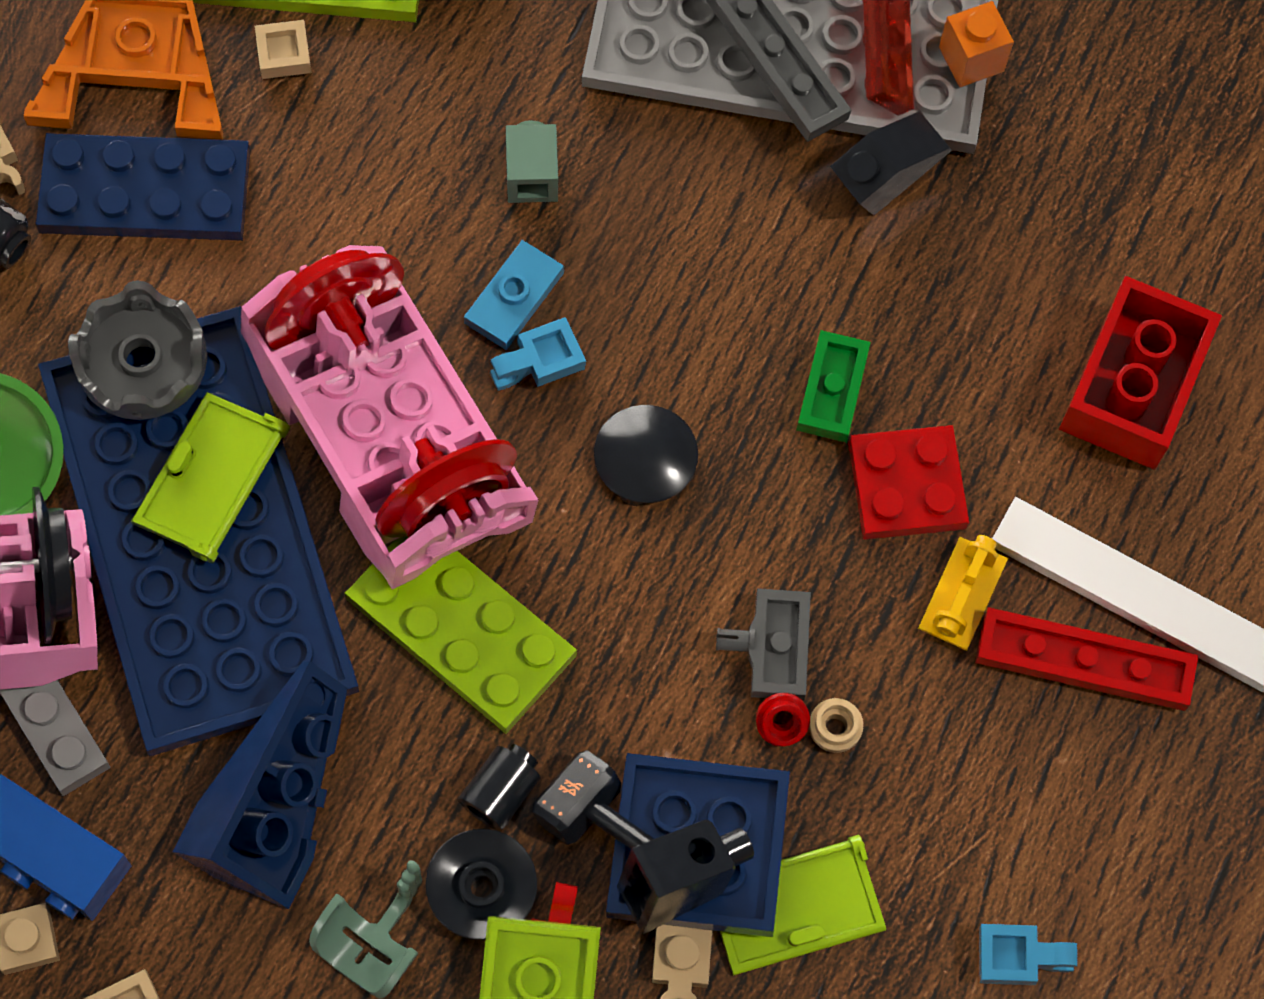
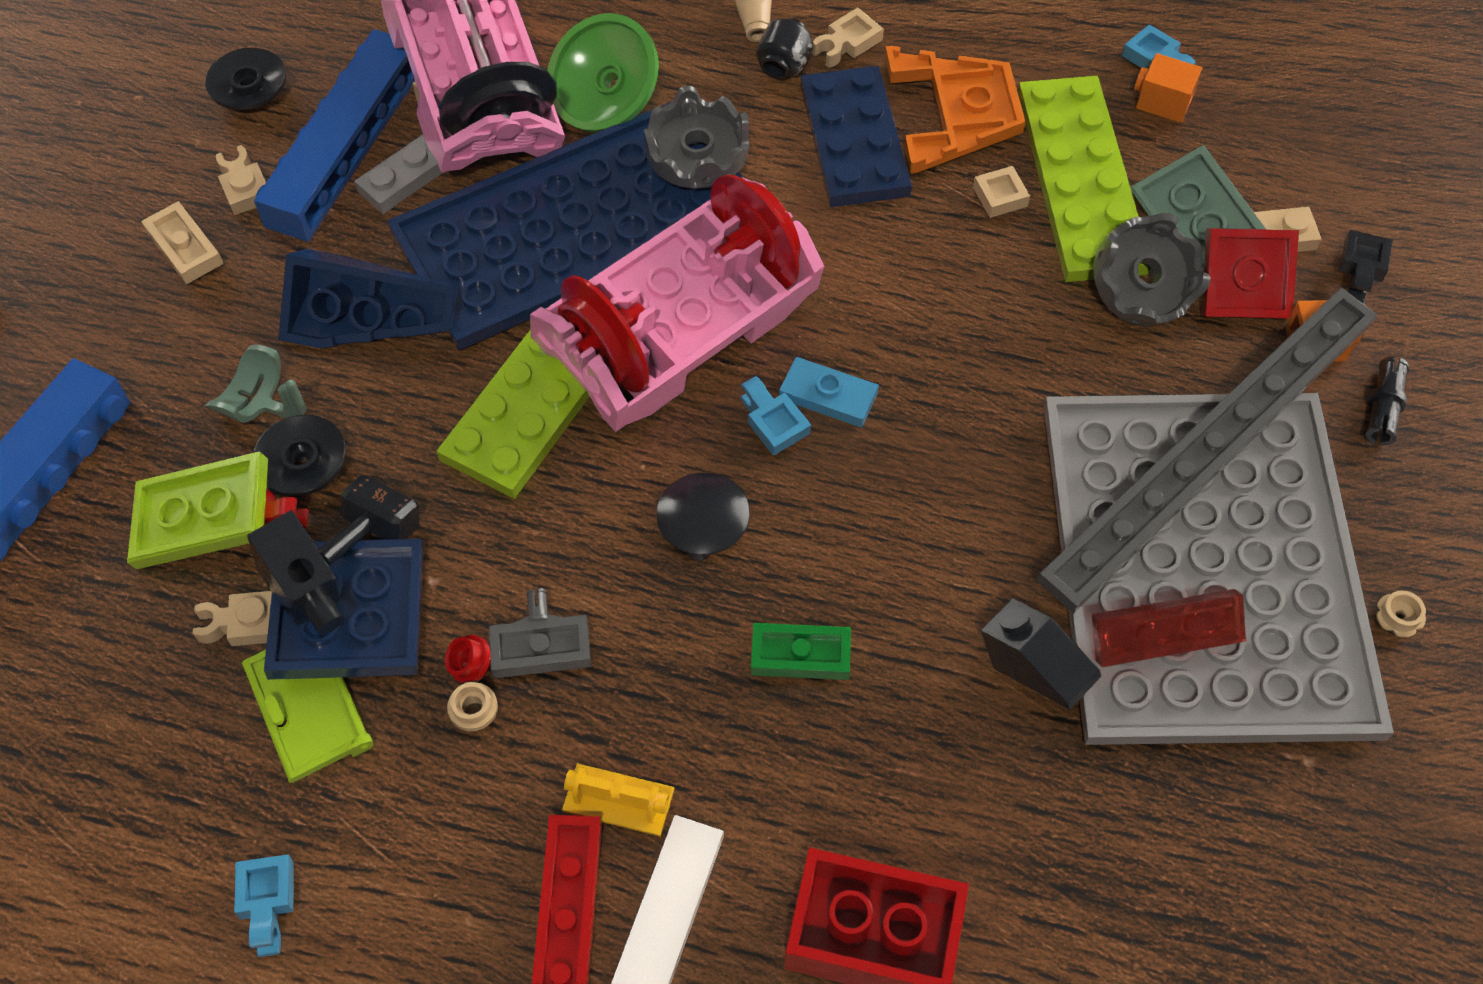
camera: 85 degrees right, 10 degrees down
(215, 481) = (605, 211): lime door -> none
(500, 786) = (383, 453): black brick -> none
(532, 162) = (952, 376): sand green brick -> none
(908, 482) = (722, 735): red plate -> none
(976, 44) = (1188, 706): orange brick -> none

